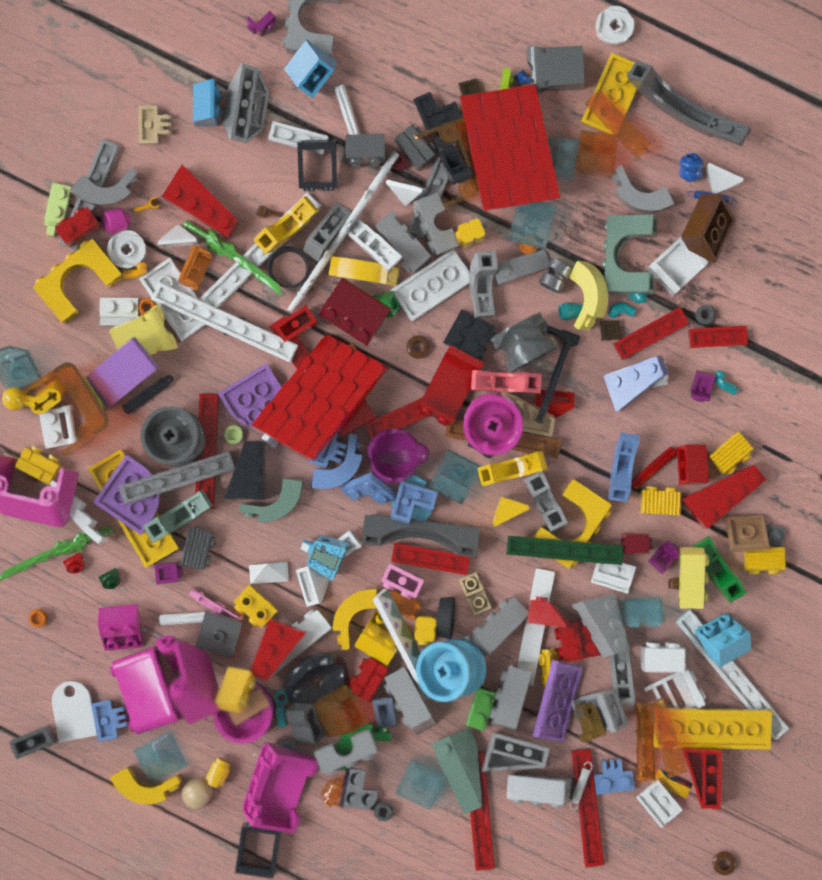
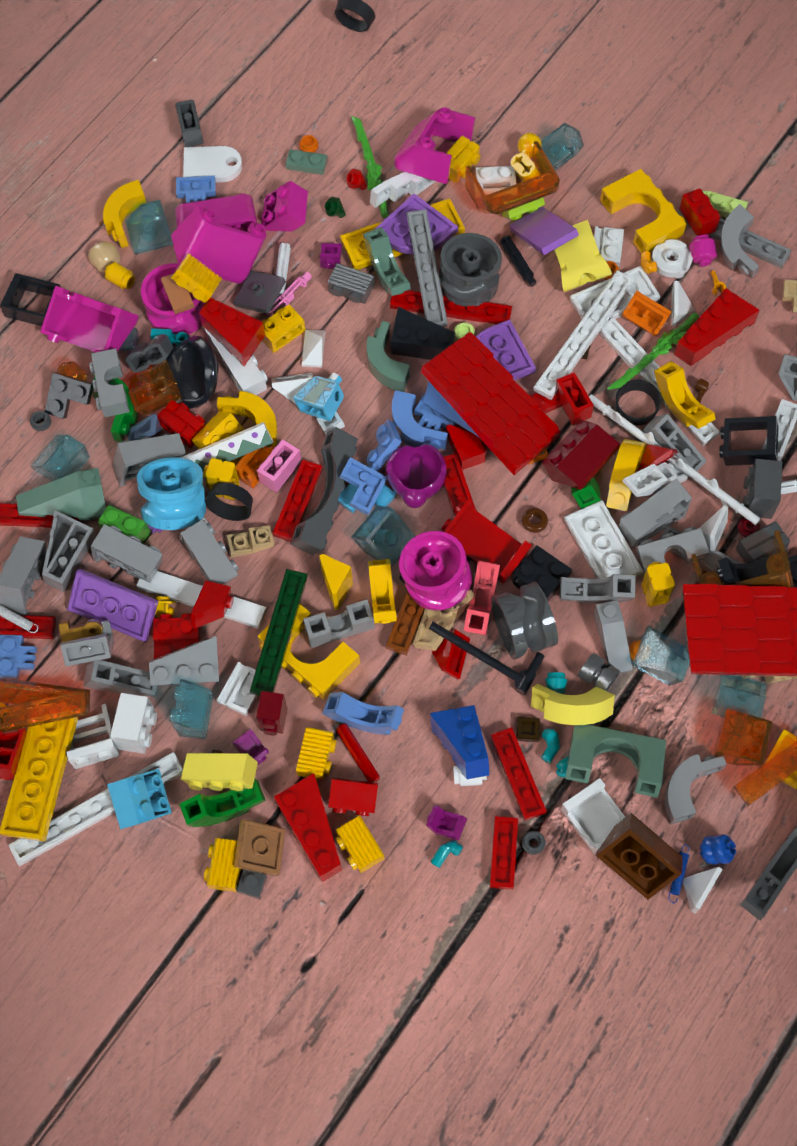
camera: 105 degrees right, 20 degrees down
(58, 617) = (306, 162): none -> sand green plate
(347, 246) = (656, 455): none -> red slope

